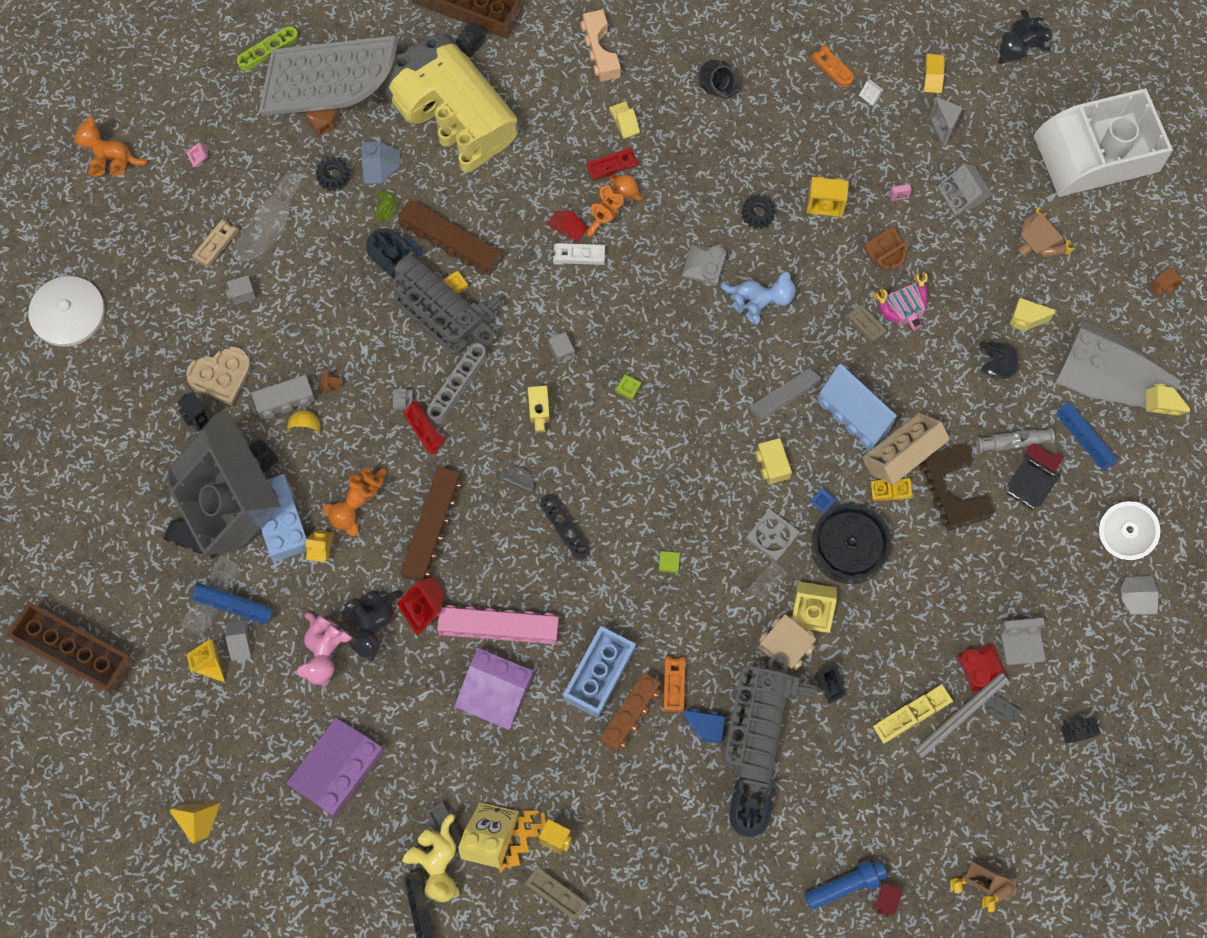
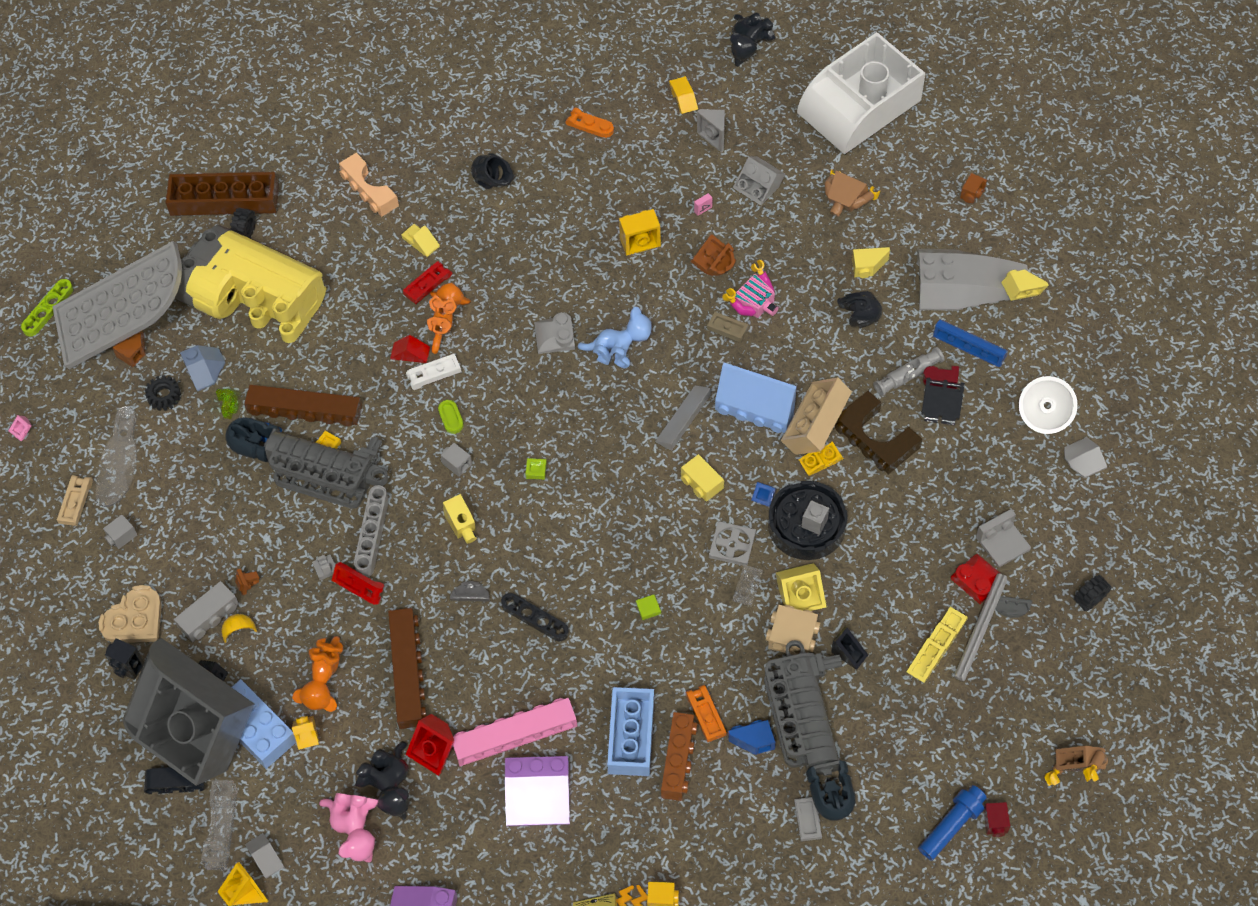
camera: 20 degrees left, 10 degrees down
(231, 603) = (242, 822): blue brick -> none
(575, 304) = (450, 416): none -> lime tile
(718, 822) = (807, 819): none -> light grey tile
(758, 202) = (582, 261): black tyre -> none
(856, 547) = (815, 517): none -> light grey brick
(871, 92) = (635, 131): white tile -> none

